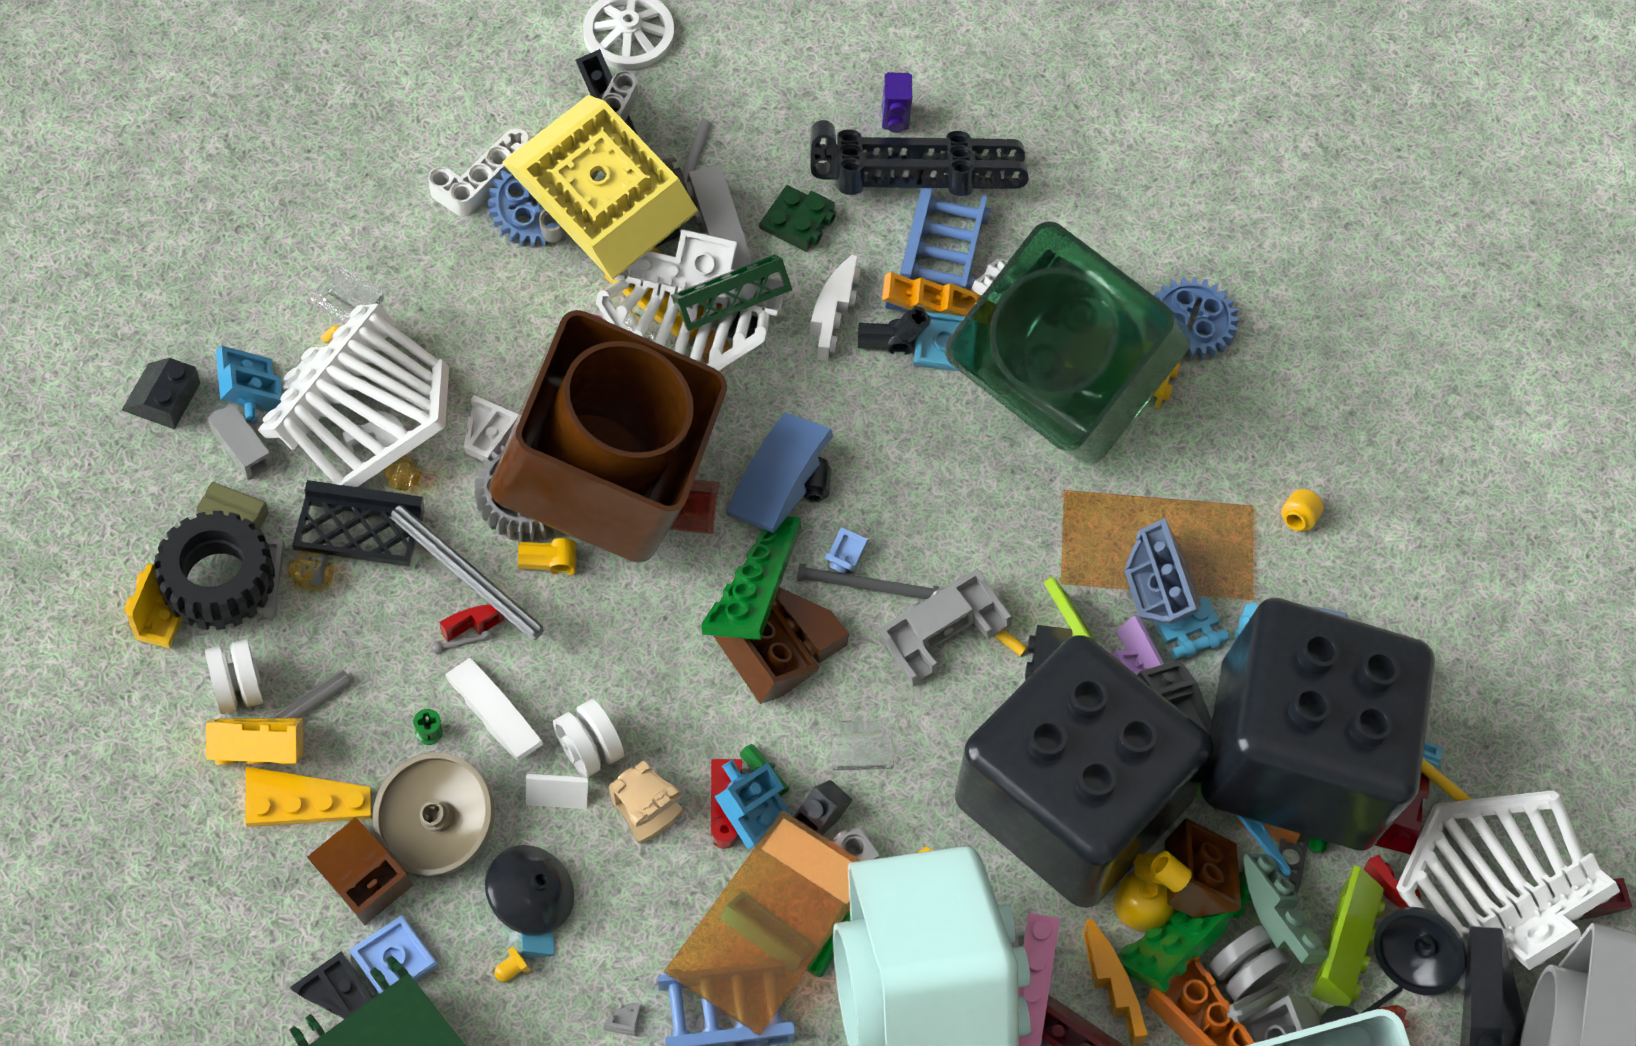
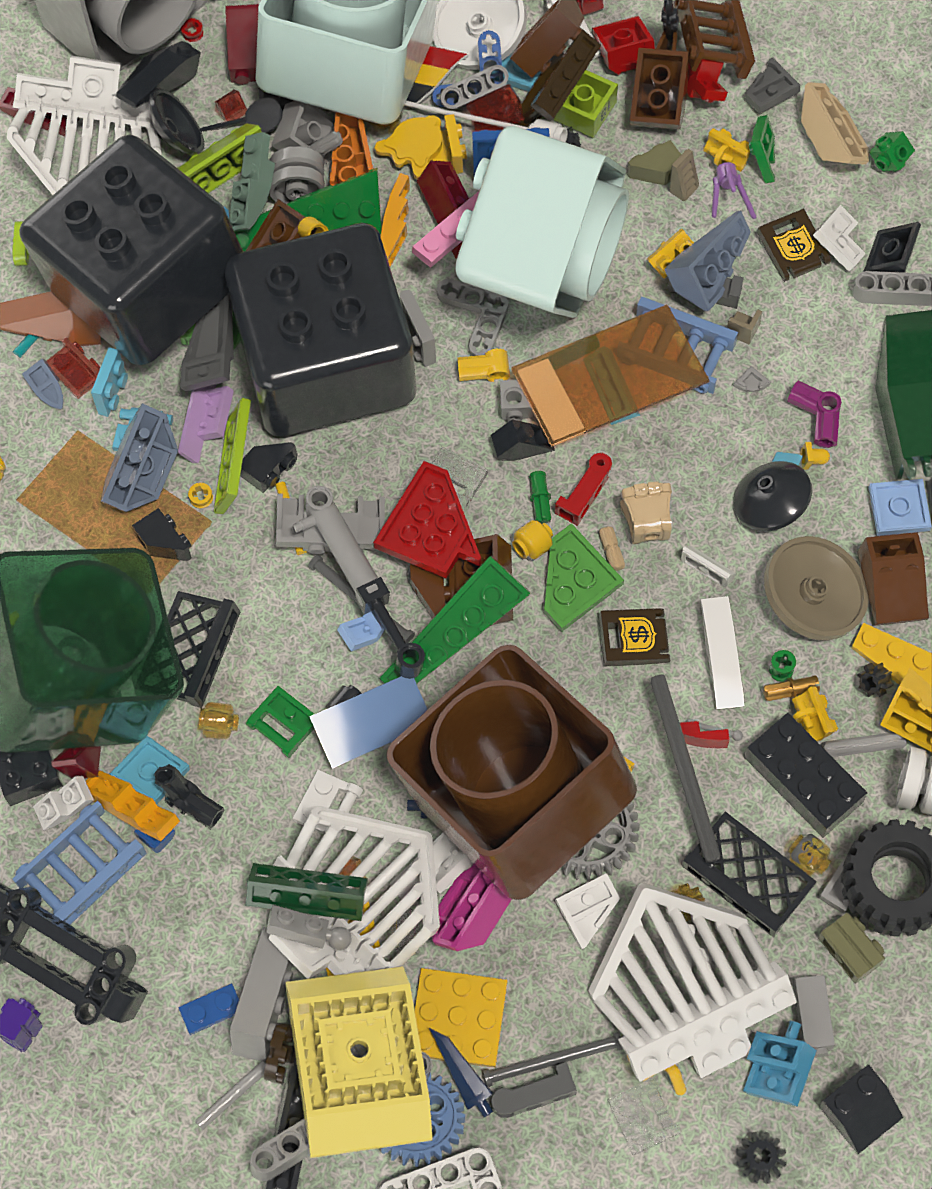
camera: 140 degrees left, 5 degrees up
(229, 314) = (760, 1146): none -> black gear
(329, 759) = (875, 679): none -> black gear
(351, 634) = (805, 775): none -> black brick
(375, 690) = (813, 715): none -> yellow hips
(406, 713) = (789, 688): none -> pearl gold axle
(445, 268) = (535, 1095): none -> dark grey leg
(449, 302) = (552, 1059): none -> dark grey bar
(506, 249) = (467, 1080): none -> dark blue bar
(518, 1009) = (827, 420): none -> magenta piece
(543, 292) = (464, 1010): none -> yellow plate
(582, 680) = (640, 637): none -> dark brown container
(588, 738) = (666, 578): white wheel -> none
(666, 763) = (611, 547): none -> tan piece
(678, 709) = (576, 578): none -> bright green plate
(711, 263) = (306, 929): none -> light grey plate
(742, 718) = (532, 540): none -> yellow head
(751, 801) = (568, 465): dark azure plate -> none
(757, 201) = (210, 1009): none -> blue plate
(781, 395) = (323, 793): none -> white plate
(799, 217) = (185, 967): dark green plate -> none
(832, 304) = (210, 864): white slope -> none
(847, 664) = (429, 525): none -> red wing
(857, 564) = (369, 589): none -> light grey piece
(860, 449) = (286, 712): none -> green plate
(916, 408) = (218, 720): none -> clear yellow head
(967, 459) = (211, 649): none -> black fence
(1004, 864) = (420, 332): none -> light grey container
(1087, 590) = (195, 500): none -> yellow bush
(1088, 531) = (160, 538): none -> black slope
(1465, 747) = (19, 251): none -> lime beam

